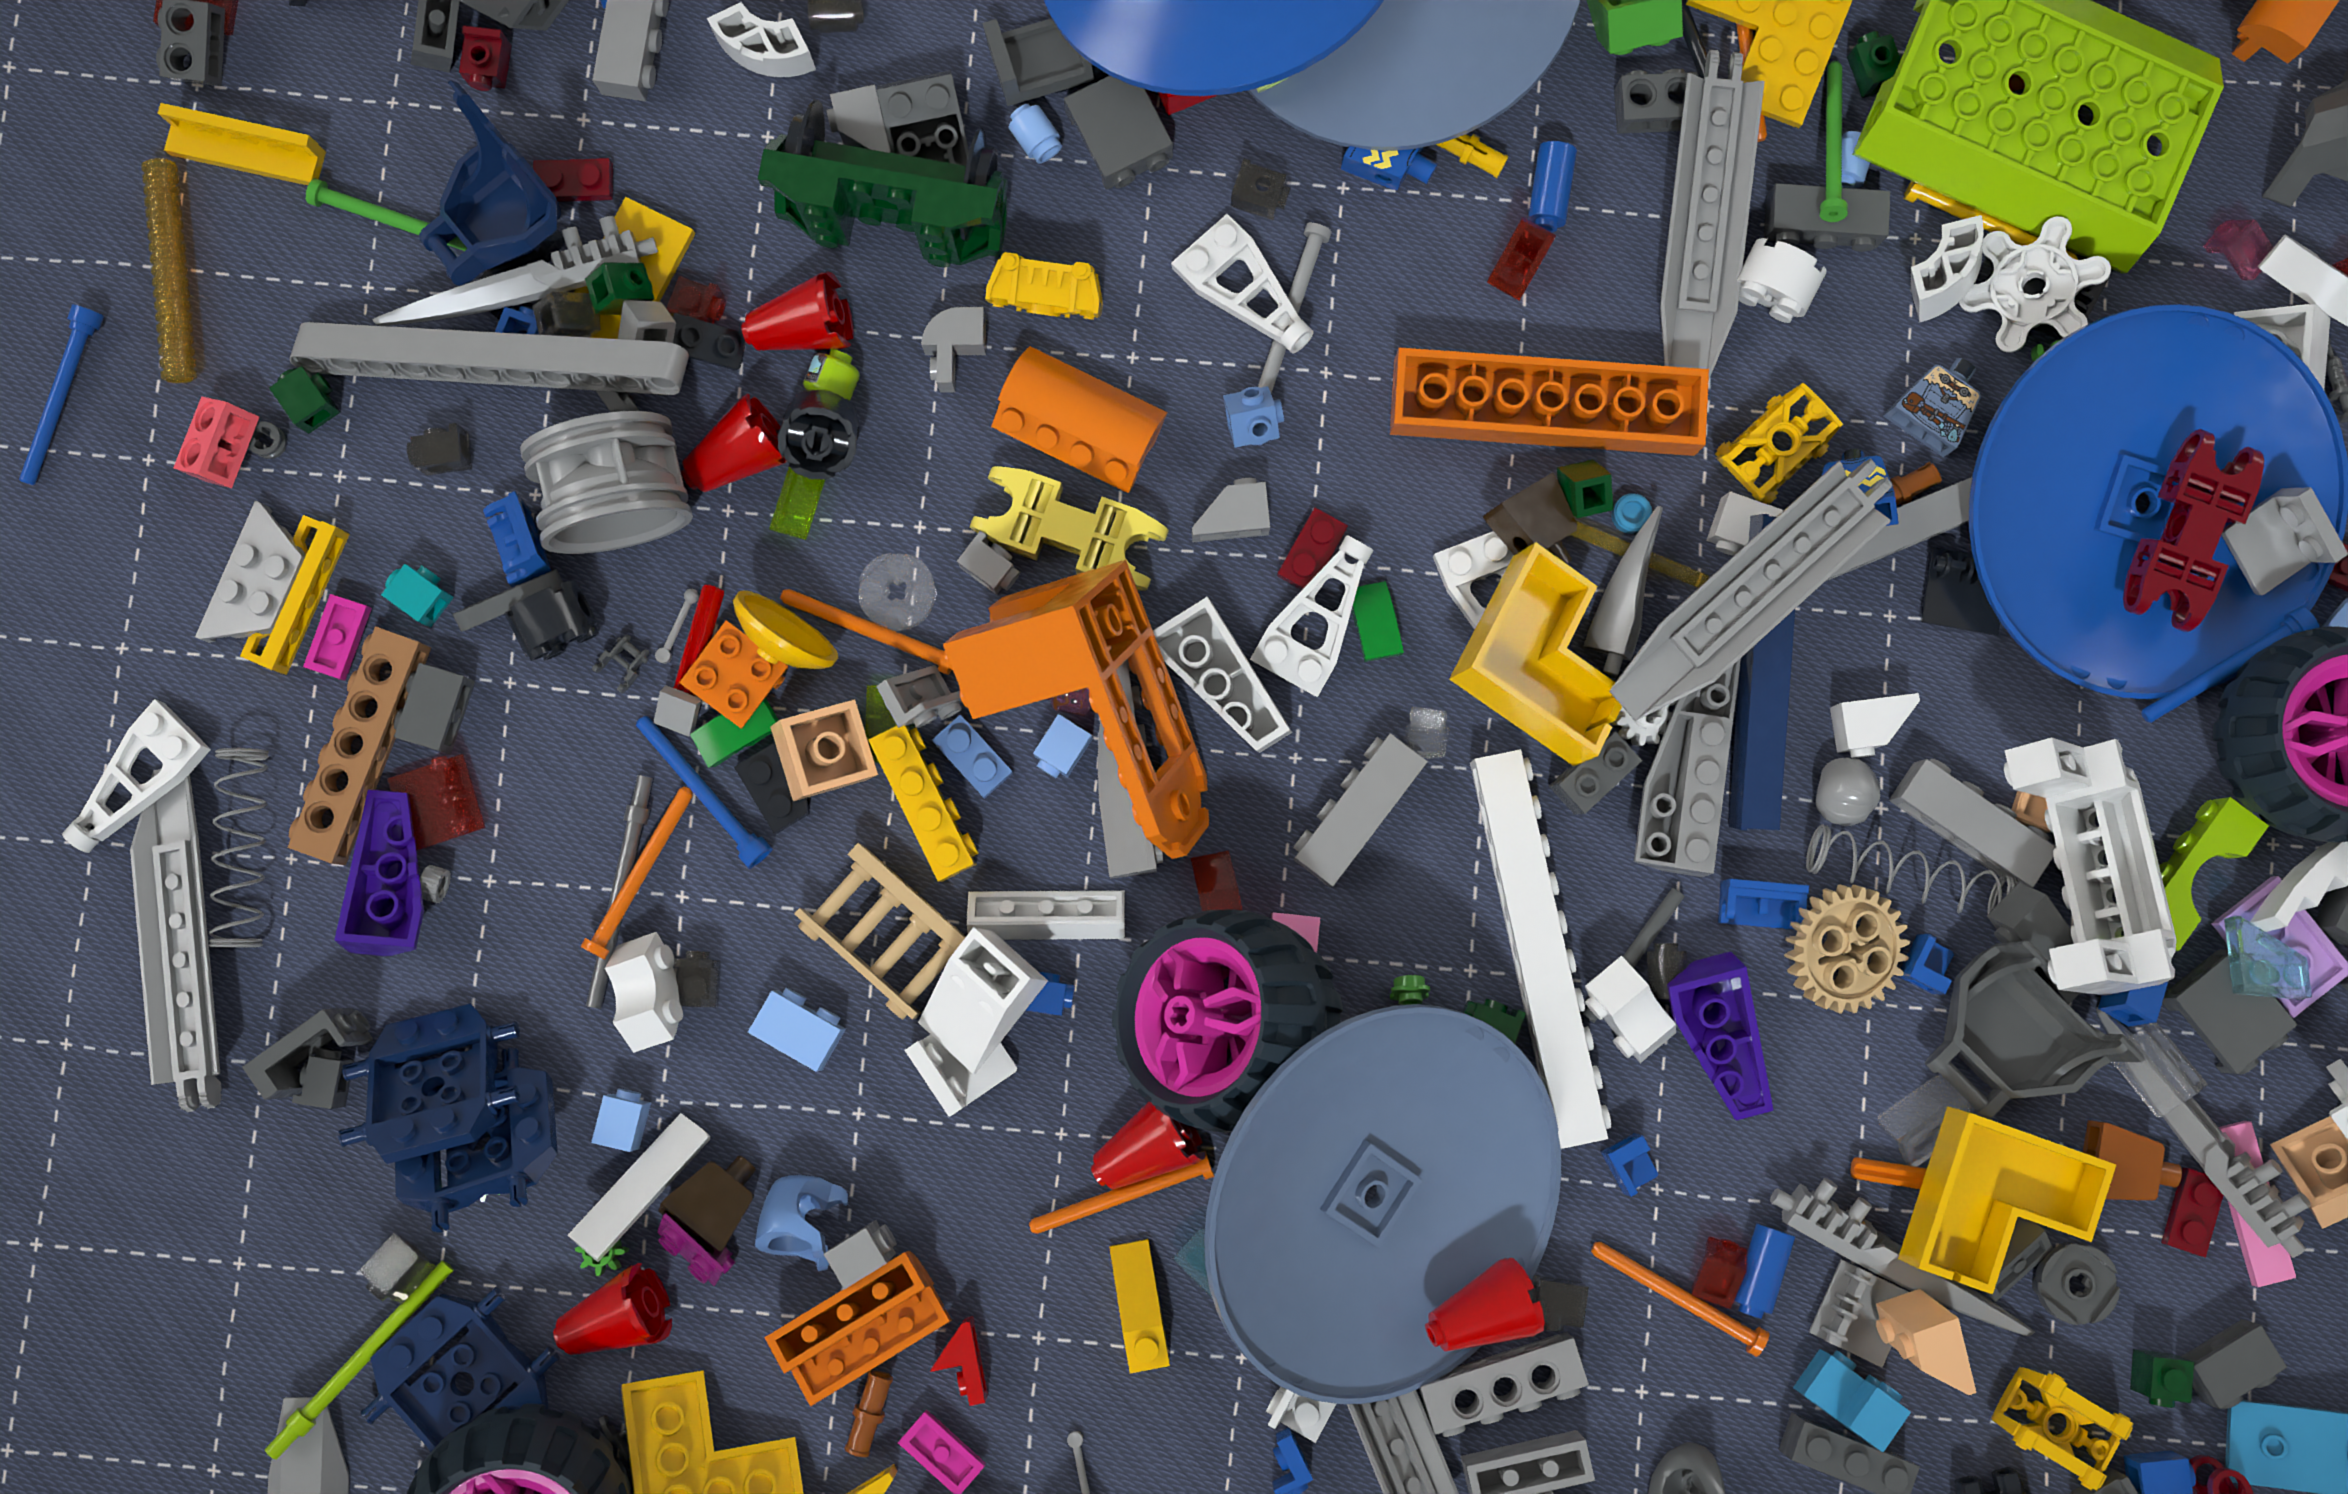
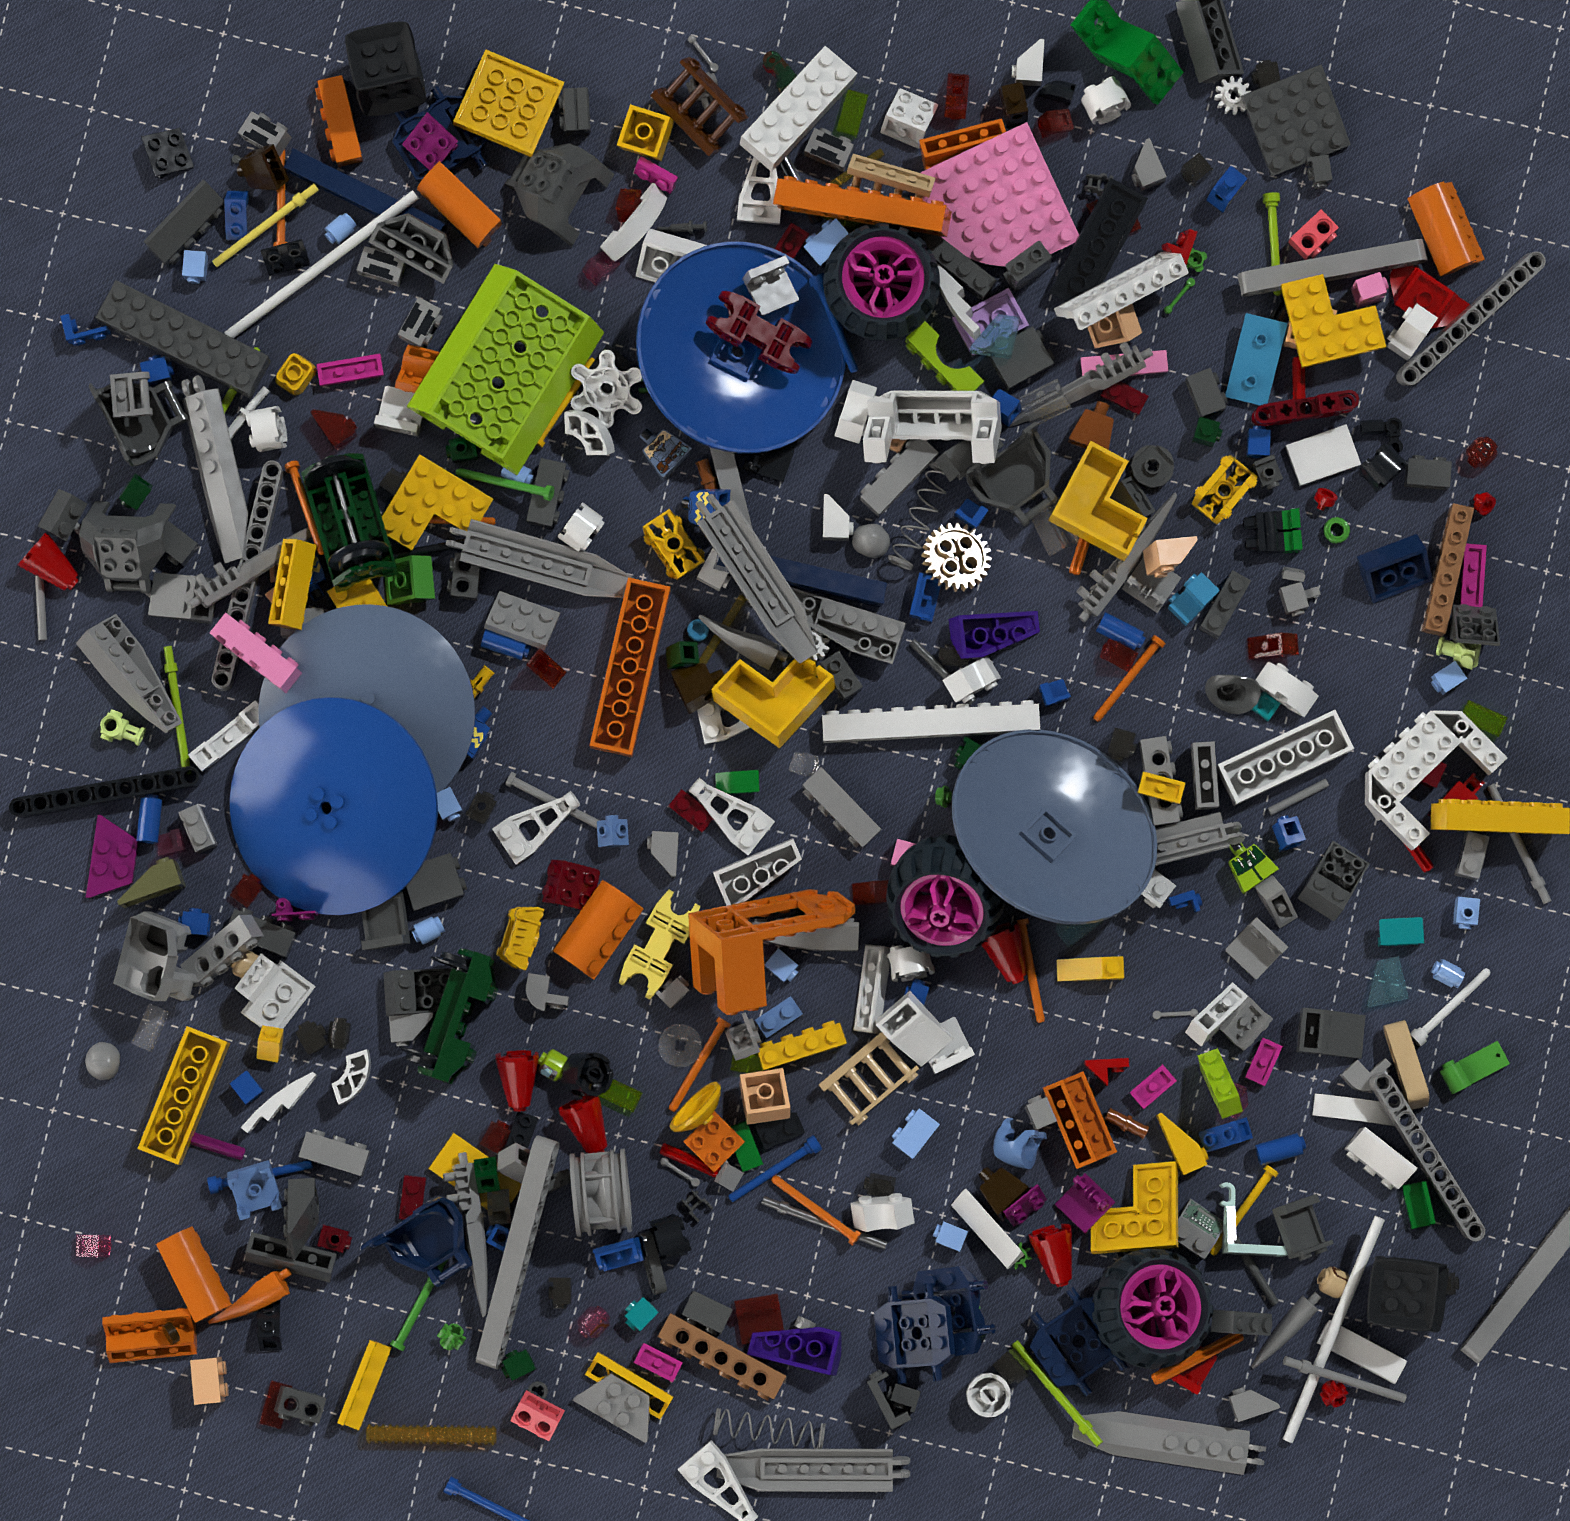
camera: 80 degrees left, 0 degrees up
(338, 277) = (451, 1336): none -> bright green gear
(340, 1232) = (988, 1394): none -> white brick
(393, 514) = (593, 1322): none -> clear pink head
(712, 1358) = (1085, 1202): none -> magenta hinge
(1096, 972) = (909, 963): none -> white brick
(1151, 359) = (569, 884): none -> dark red bracket
(1256, 130) = (448, 805): none -> light blue brick
(1487, 1310) = (1118, 783): red cone -> none
(1492, 1392) = (1161, 787): none -> yellow plate
(1597, 206) = (522, 620): none -> light grey plate
(2072, 723) = (855, 412): none -> white brick

